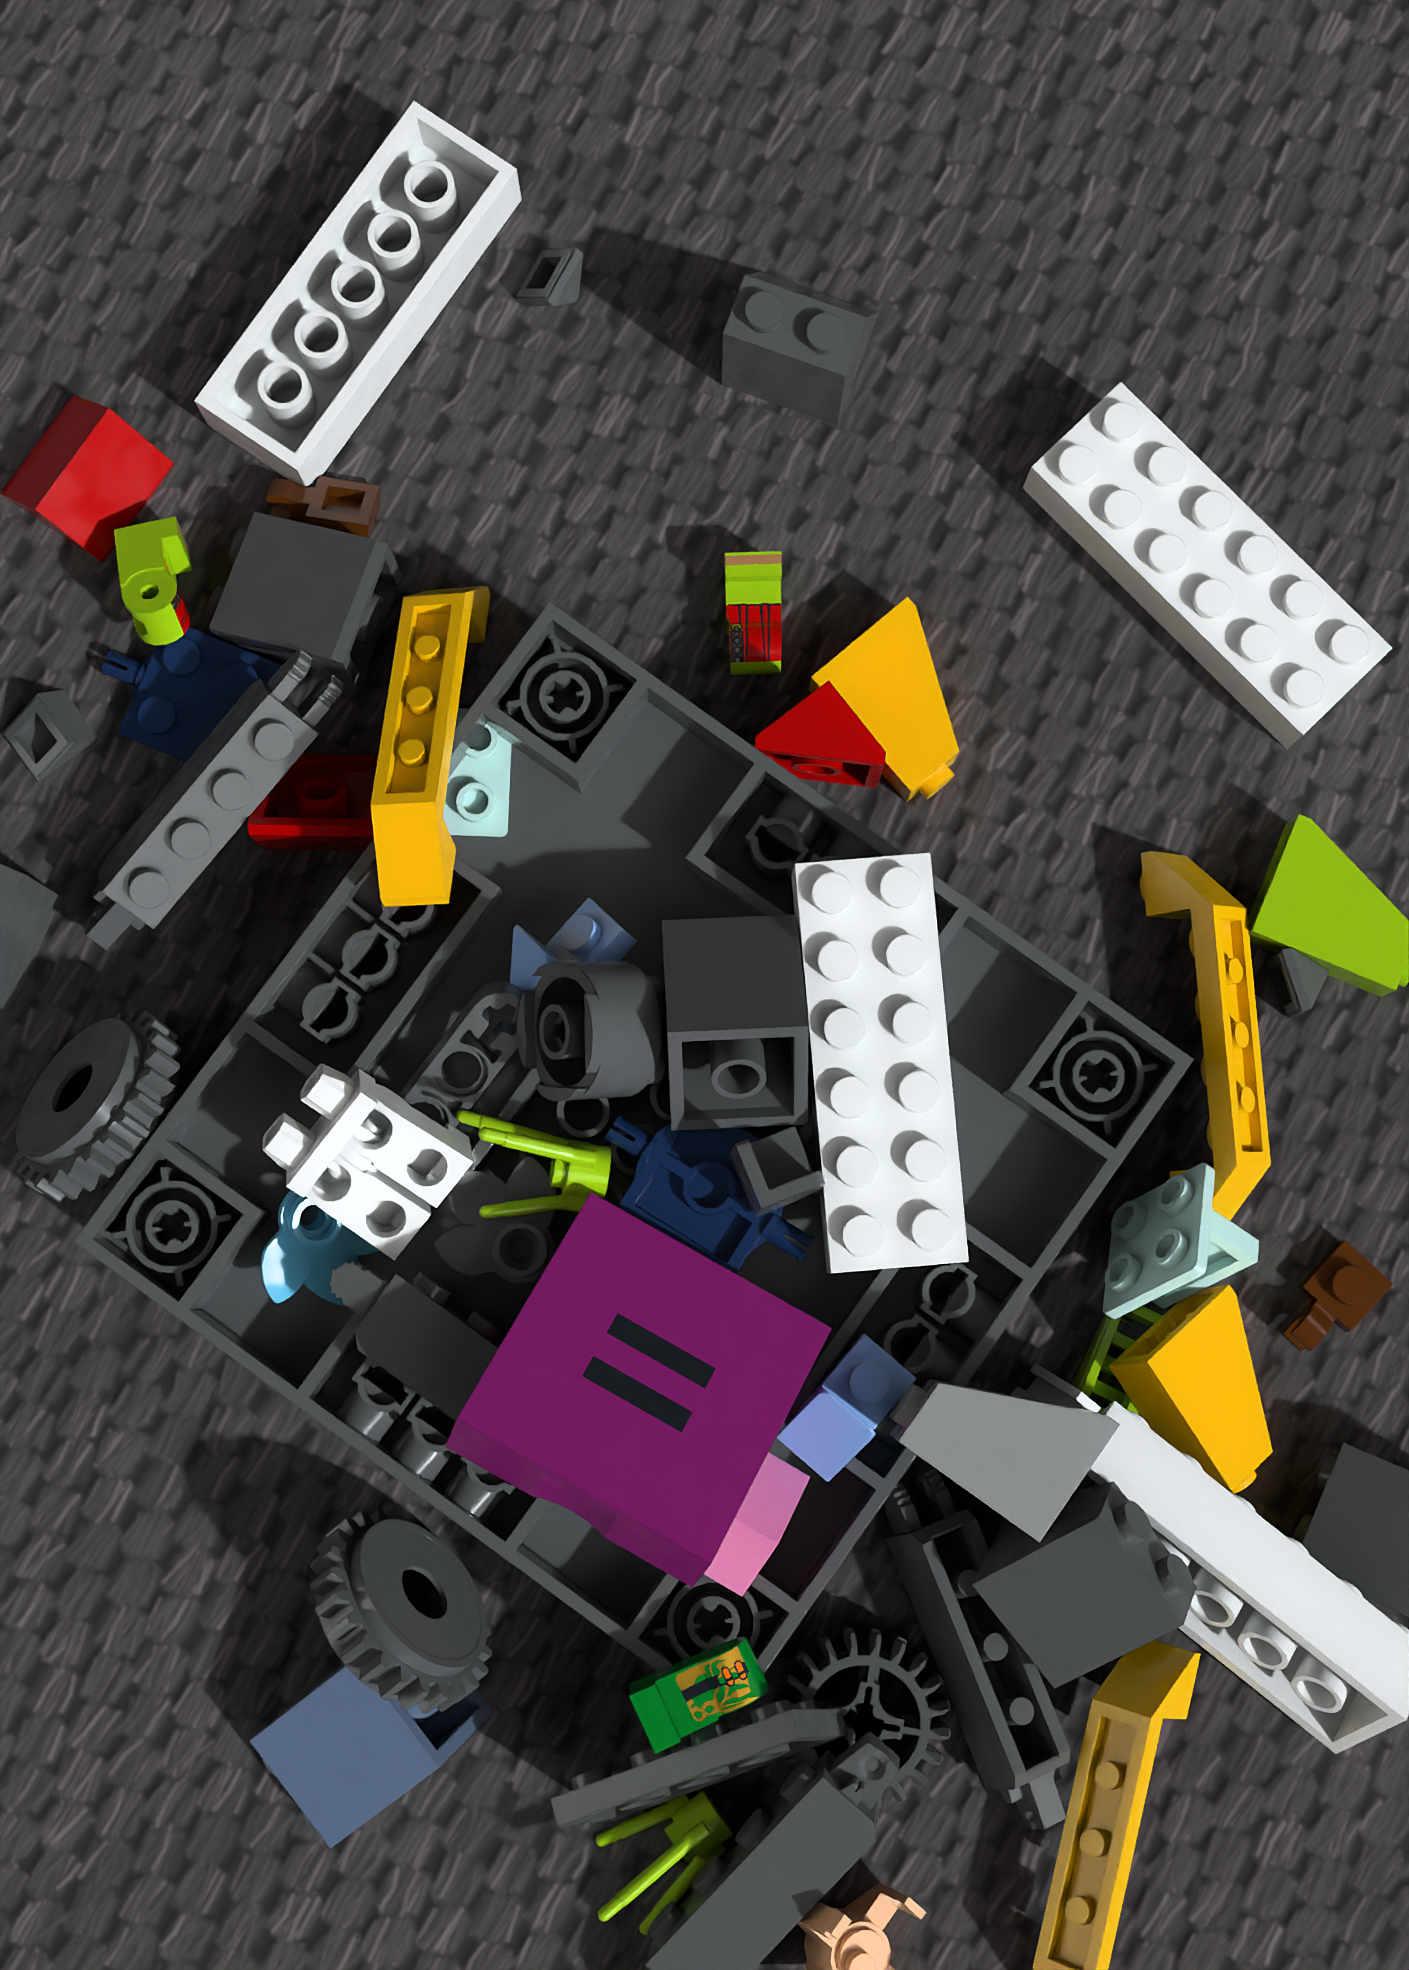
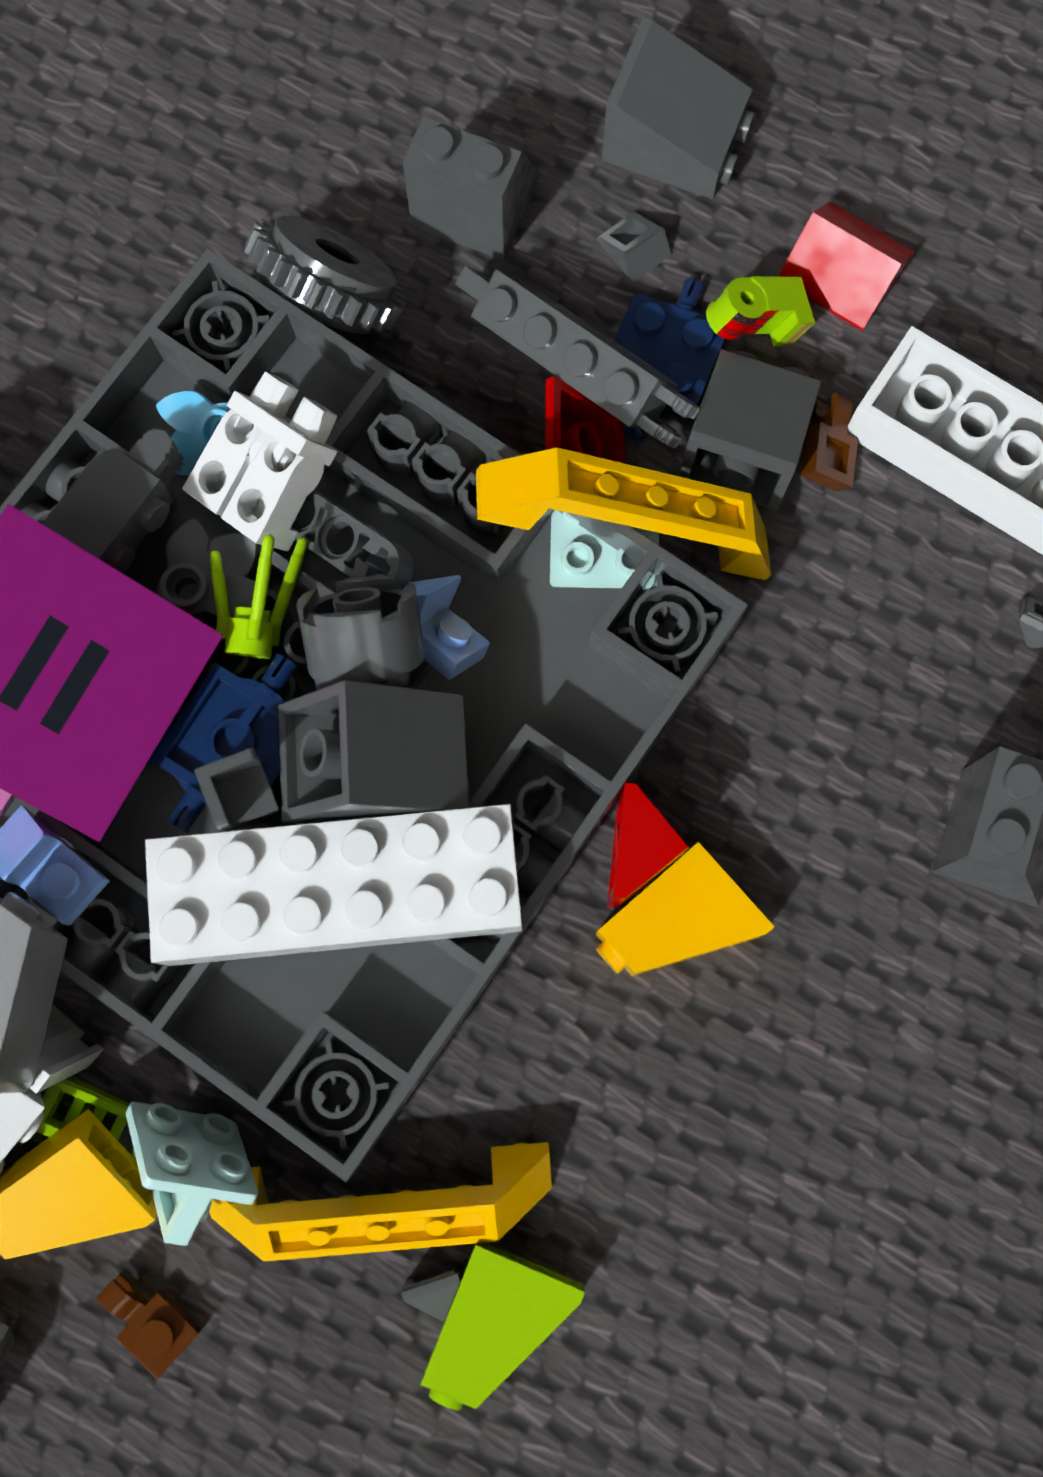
camera: 90 degrees right, 5 degrees down
(753, 611) = (757, 796): leg -> none
(1204, 565) = (818, 1208): white brick -> none

